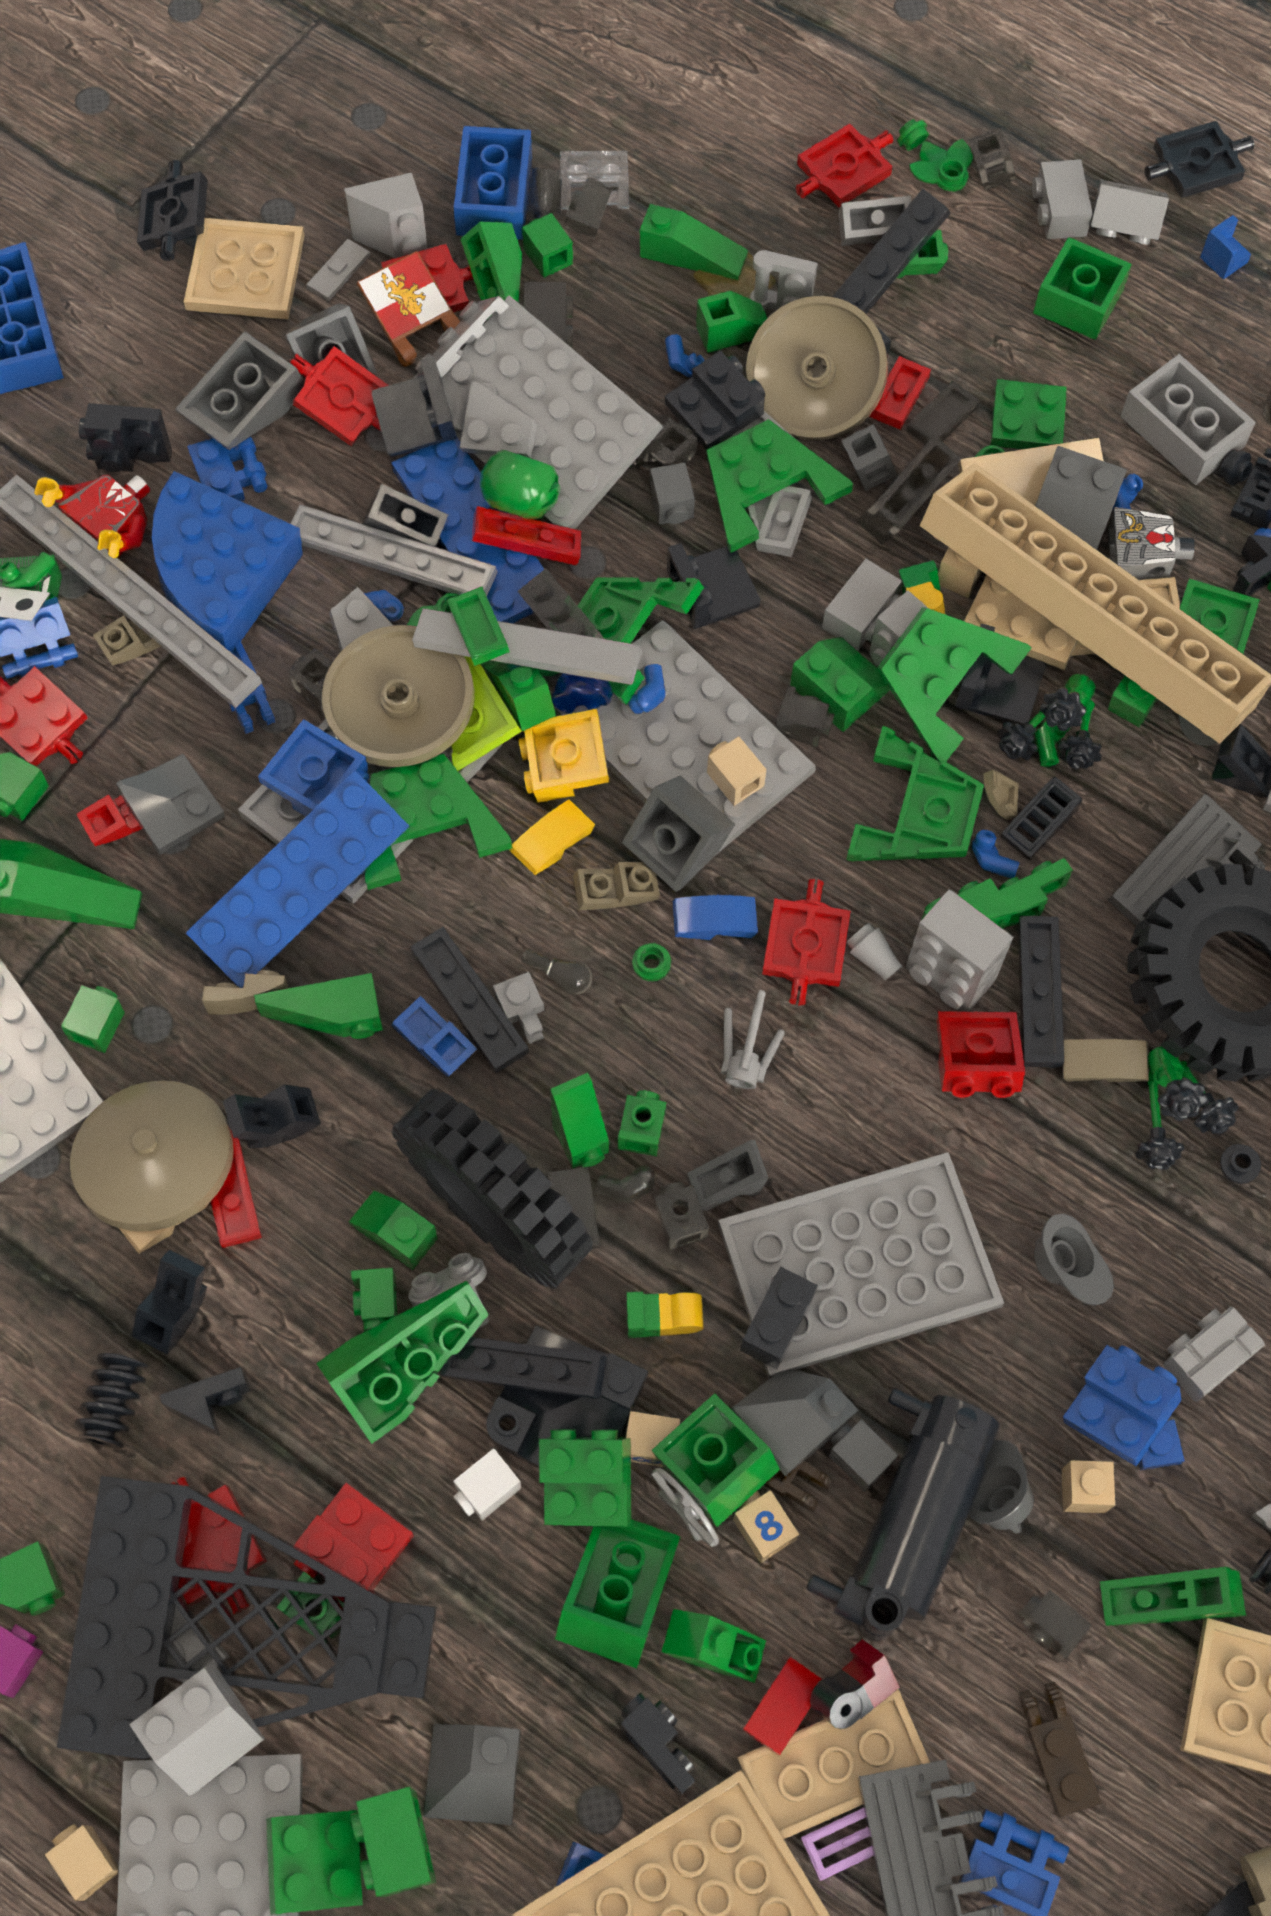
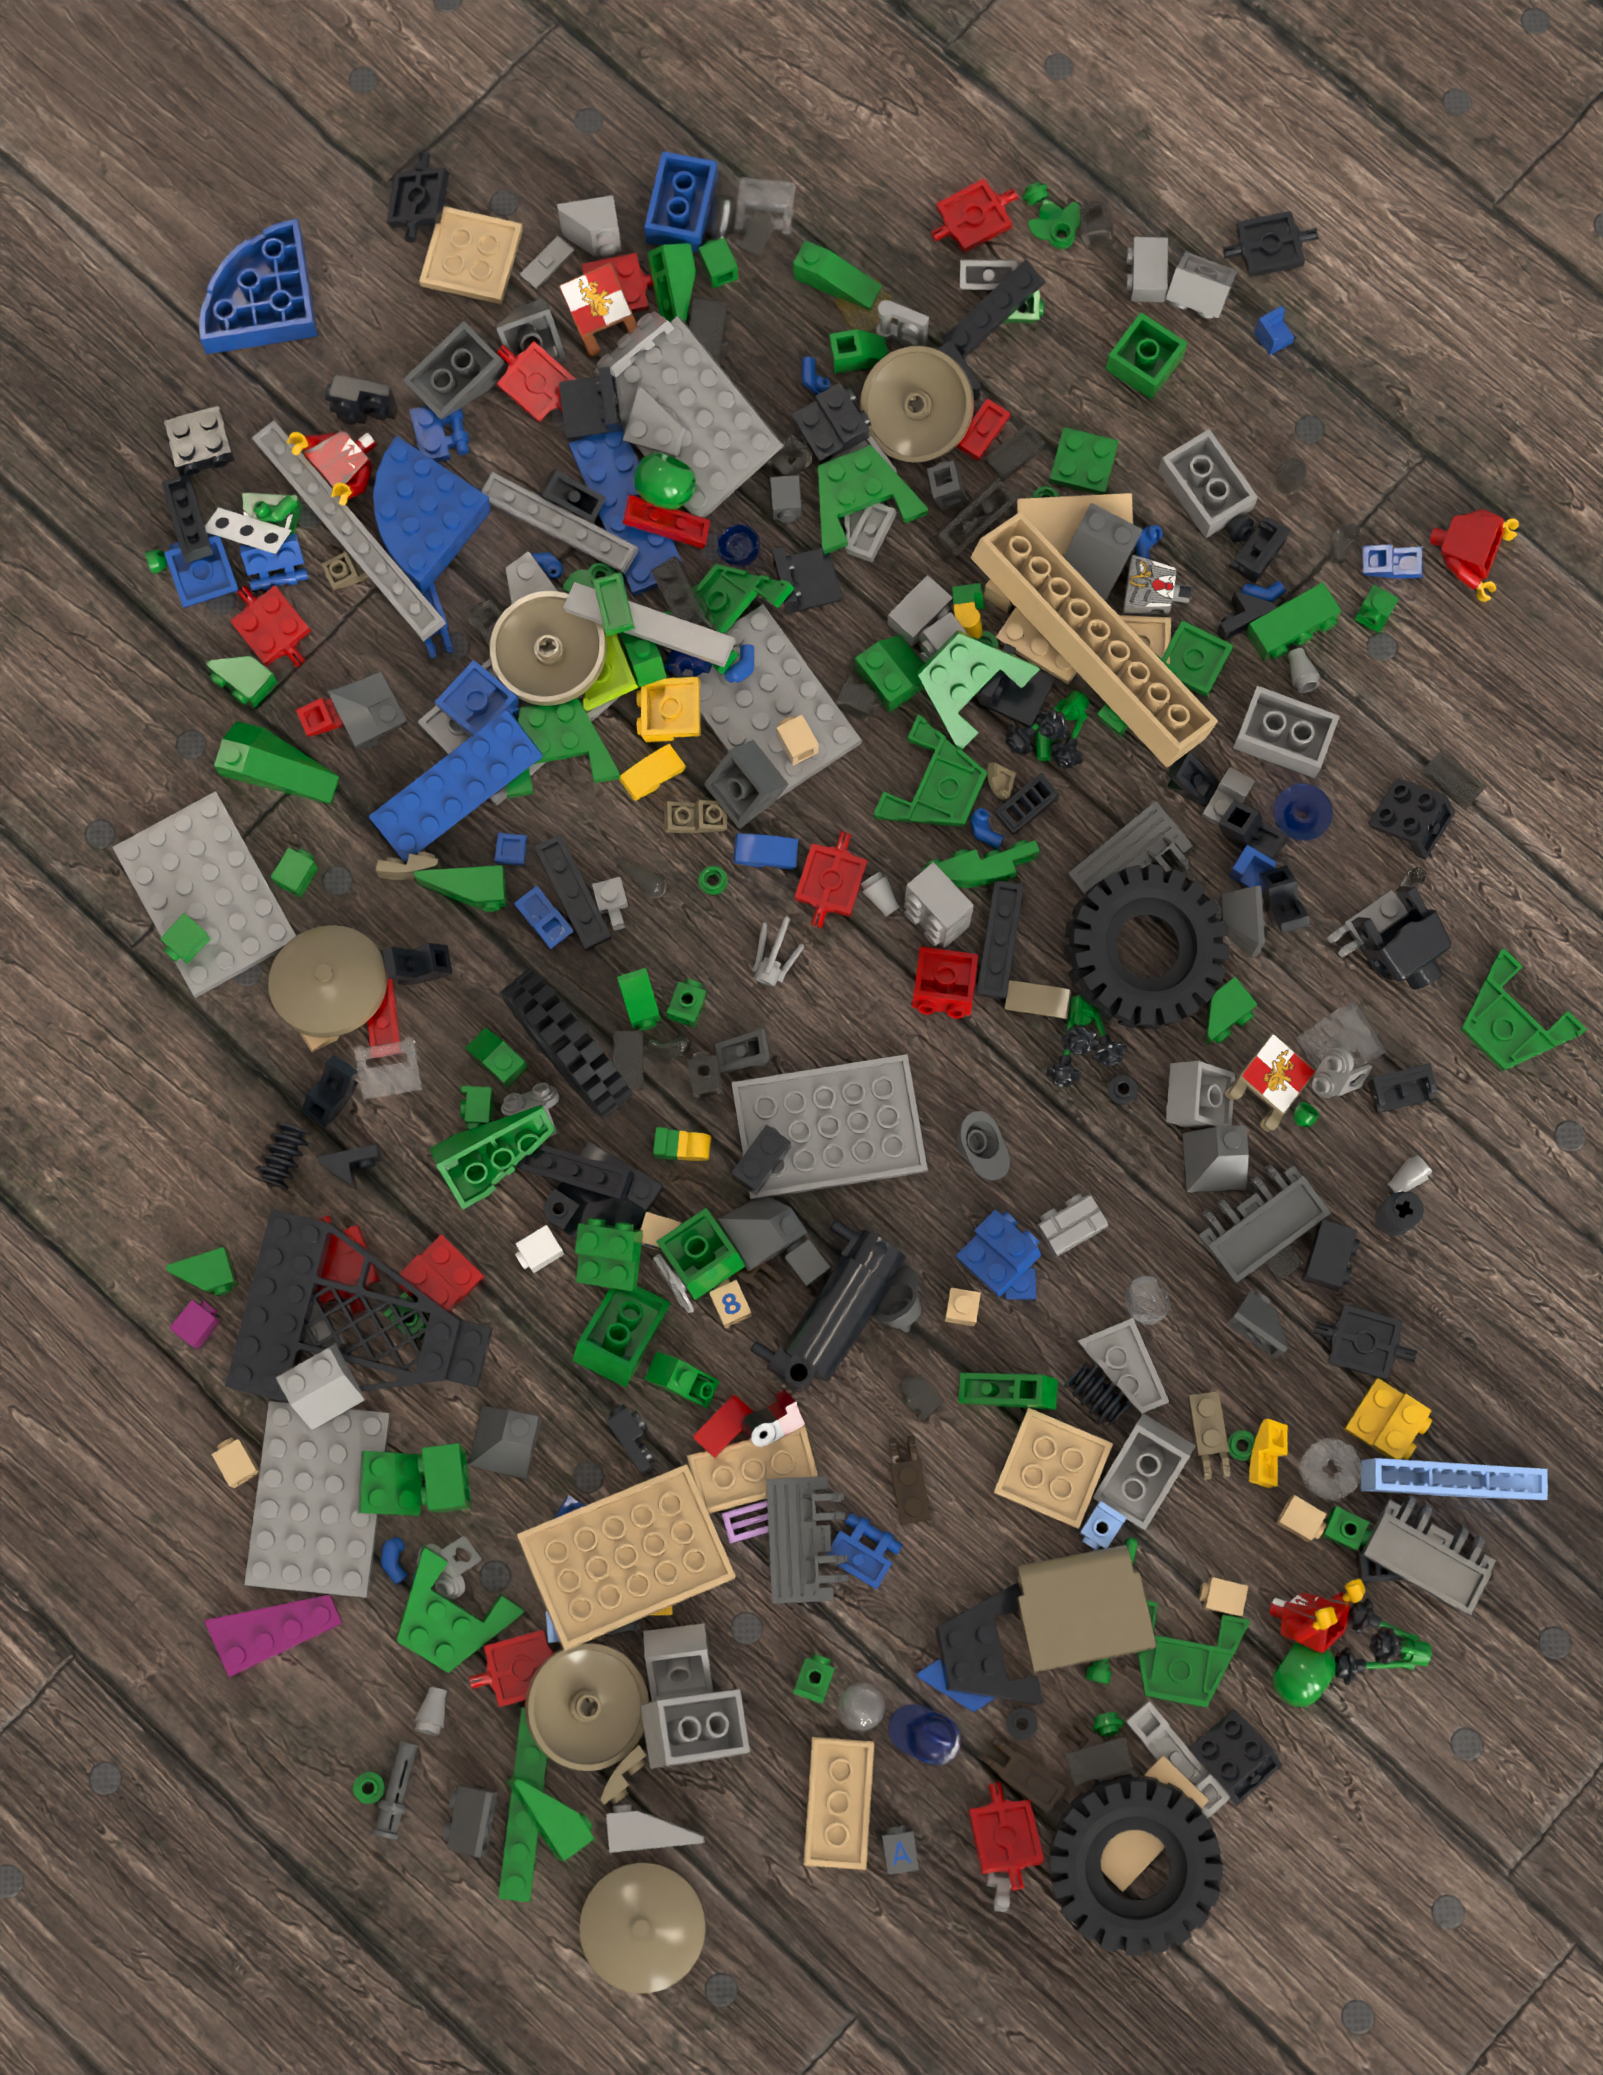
camera: 10 degrees right, 10 degrees up
(251, 1274) = (388, 1078): none -> clear plate
(380, 955) = (511, 849): none -> blue tile
(622, 553) = (739, 545): none -> clear blue hair

